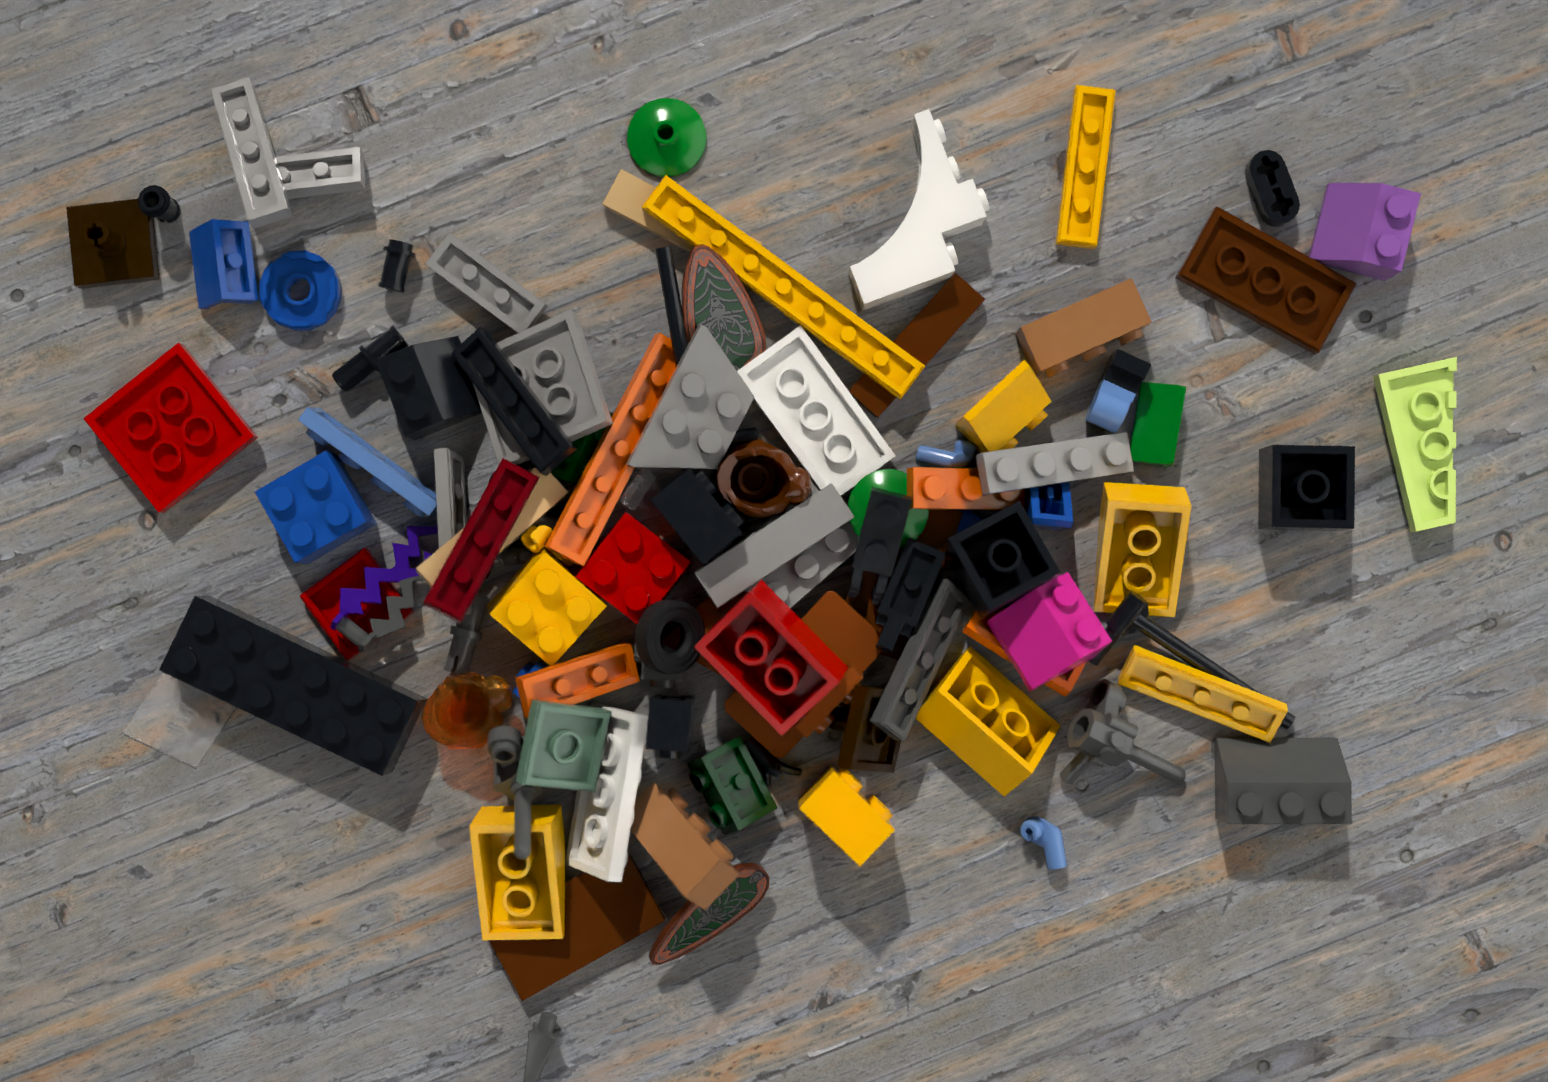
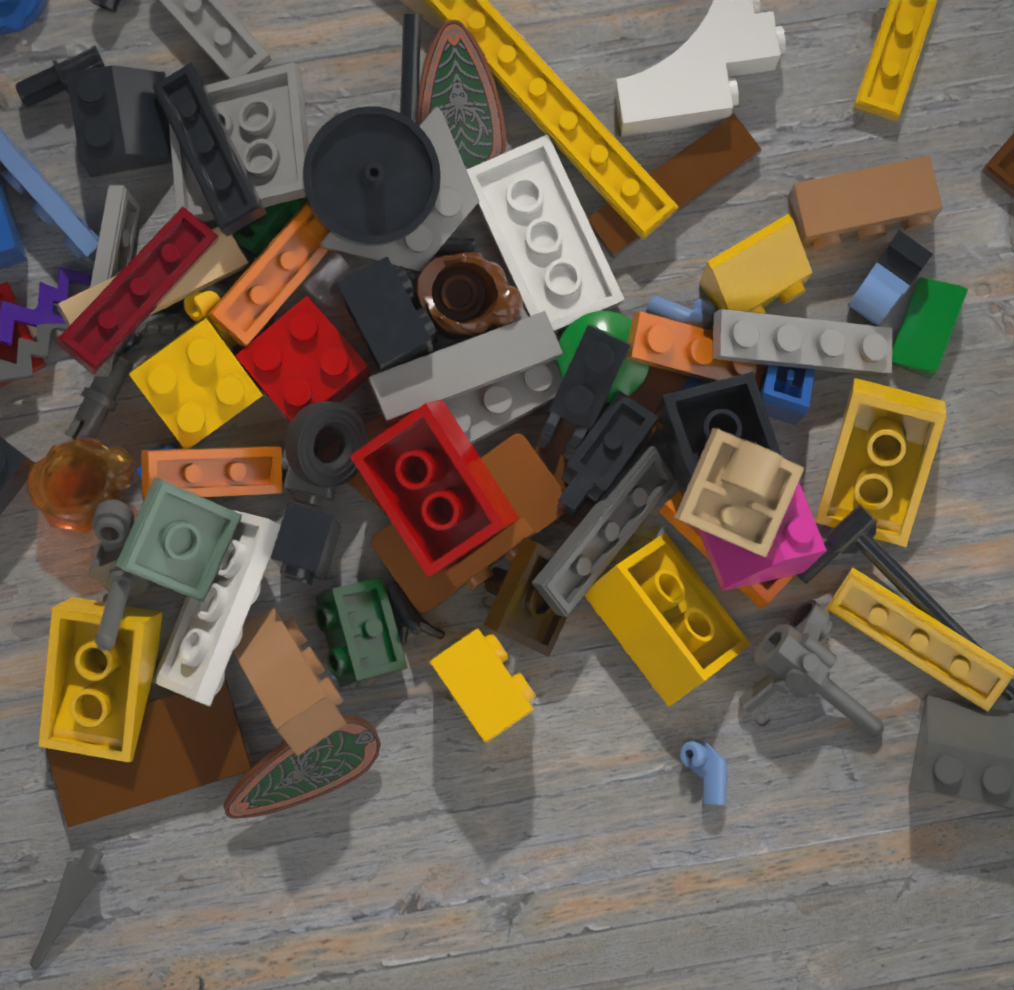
camera: 15 degrees right, 5 degrees down
(659, 399) = (371, 176): none -> black piece
(1031, 611) = (739, 492): none -> tan plate

